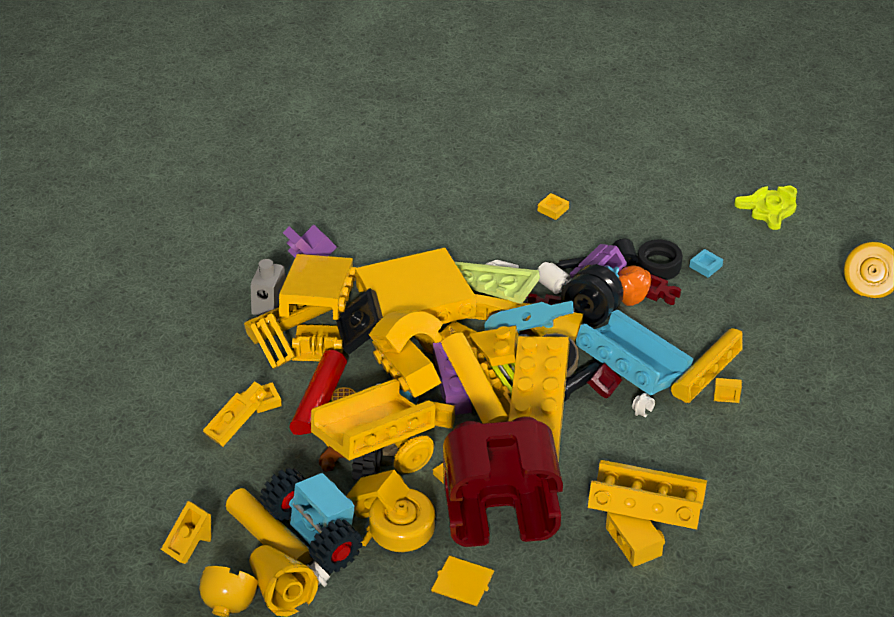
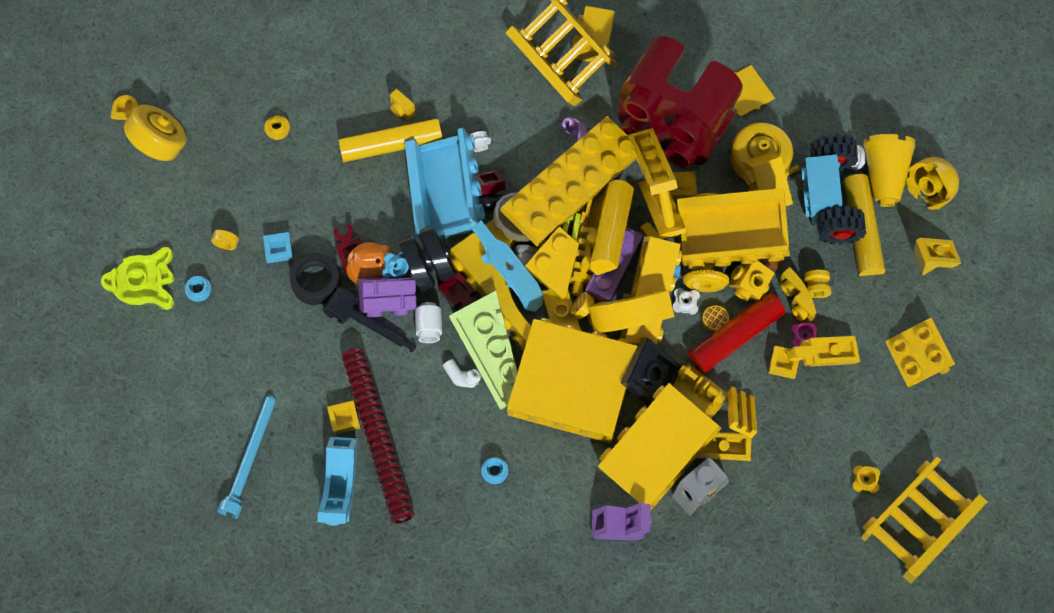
camera: 145 degrees left, 25 degrees up
(65, 347) = (948, 525): none -> yellow fence
(145, 364) = (871, 473): none -> yellow plate
(153, 464) = (920, 352): none -> yellow hinge
(262, 425) = (804, 328): none -> dark pink plate
(277, 459) = (818, 283): none -> yellow wheel
(278, 439) = (802, 304): none -> yellow slope
(424, 234) = (494, 462): none -> medium azure plate
(466, 392) = (657, 183): none -> yellow fence
(512, 169) = (339, 481): none -> medium azure arch
(522, 209) = (377, 435): none -> dark red piece
(573, 136) = (232, 503): none -> medium azure piece
(575, 462) = (574, 127): none -> medium lavender arm
(729, 217) = (198, 281): none -> medium azure plate
(745, 245) = (224, 239): none -> yellow tile
(799, 329) = (279, 133): none -> yellow plate

